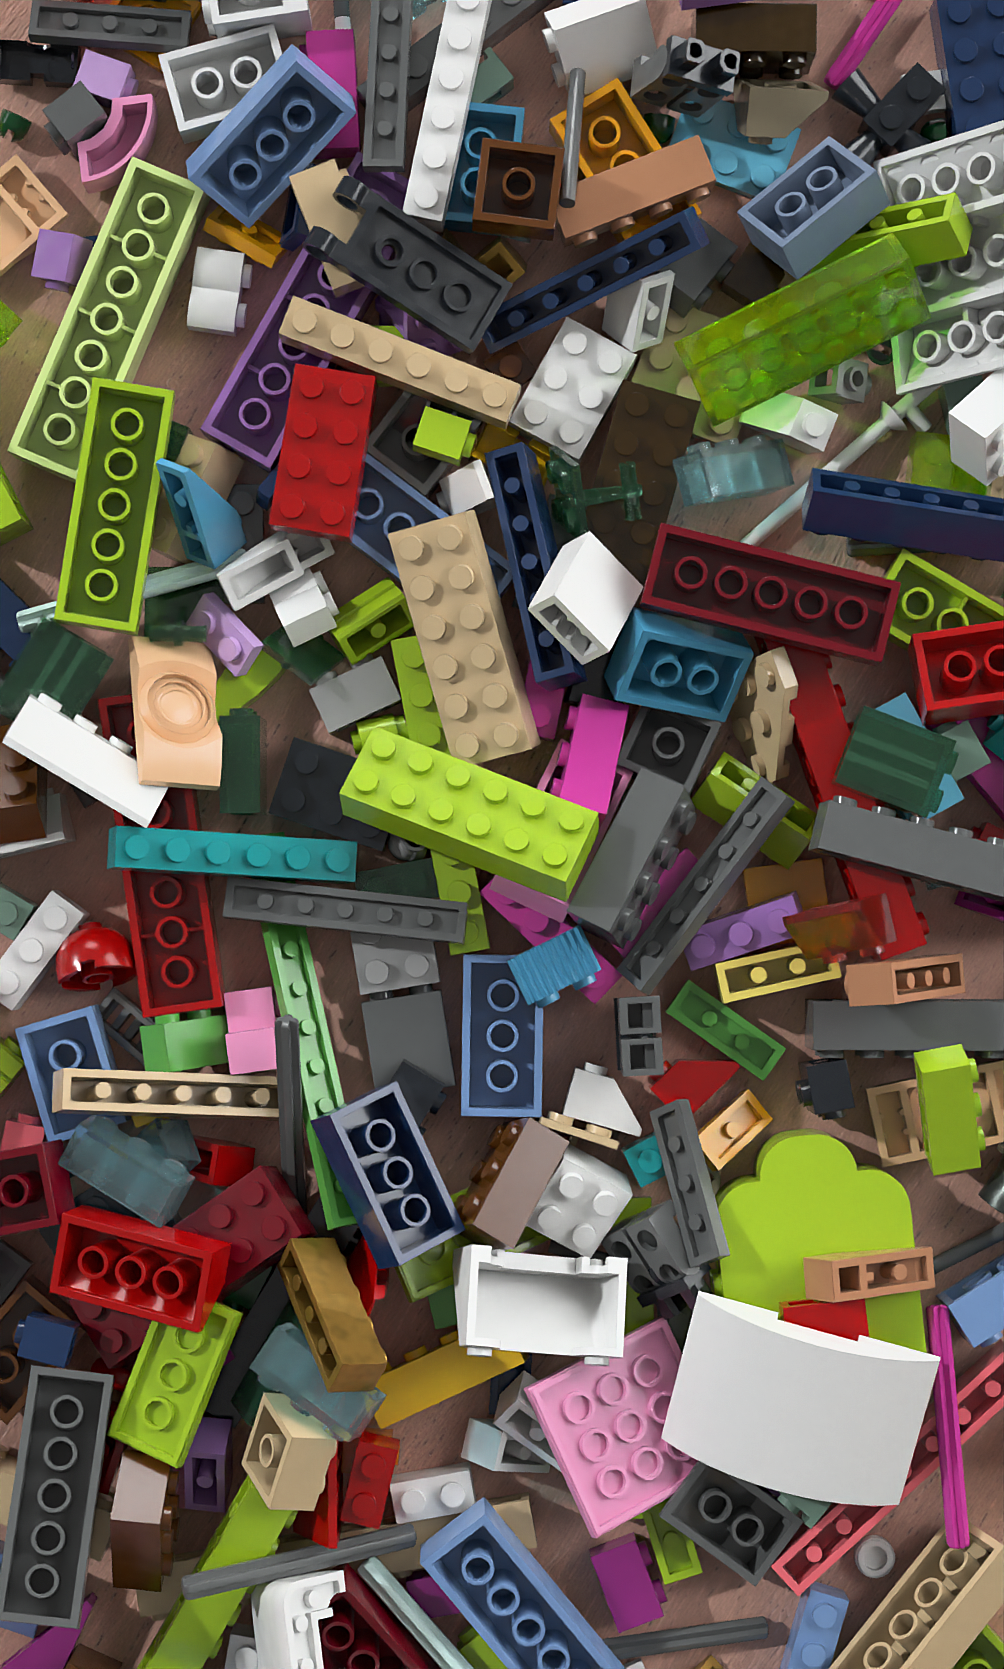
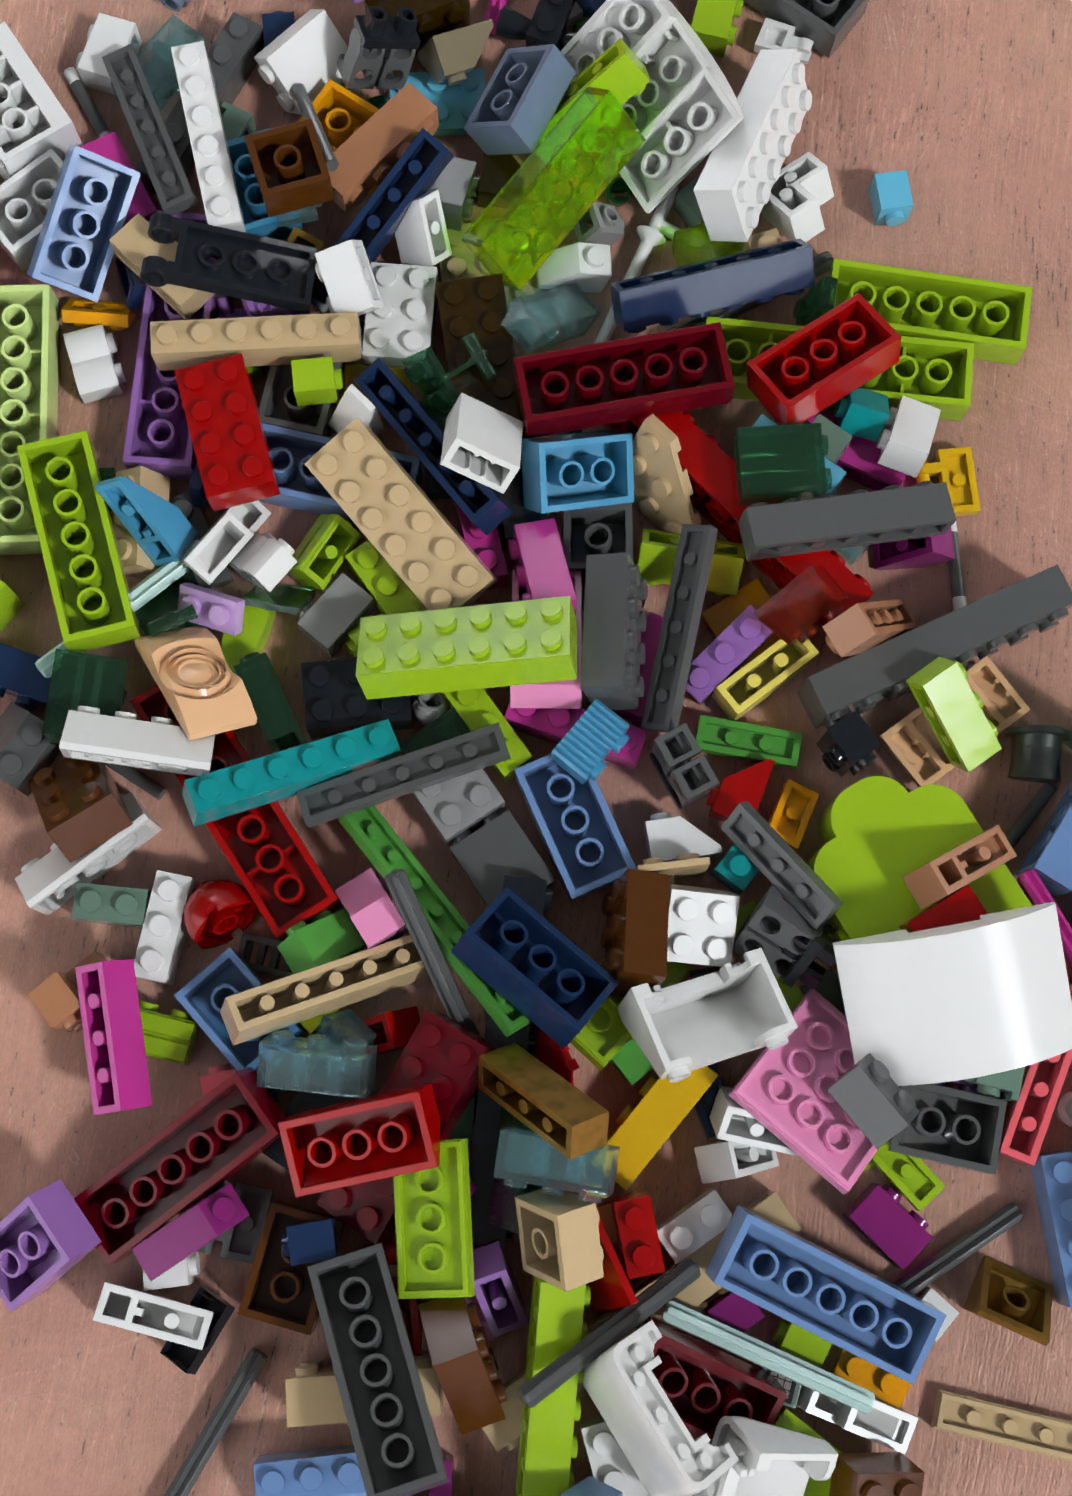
camera: 30 degrees left, 10 degrees down
(529, 337) = (348, 278): none -> white brick
(664, 1463) = (874, 1100): none -> dark grey brick

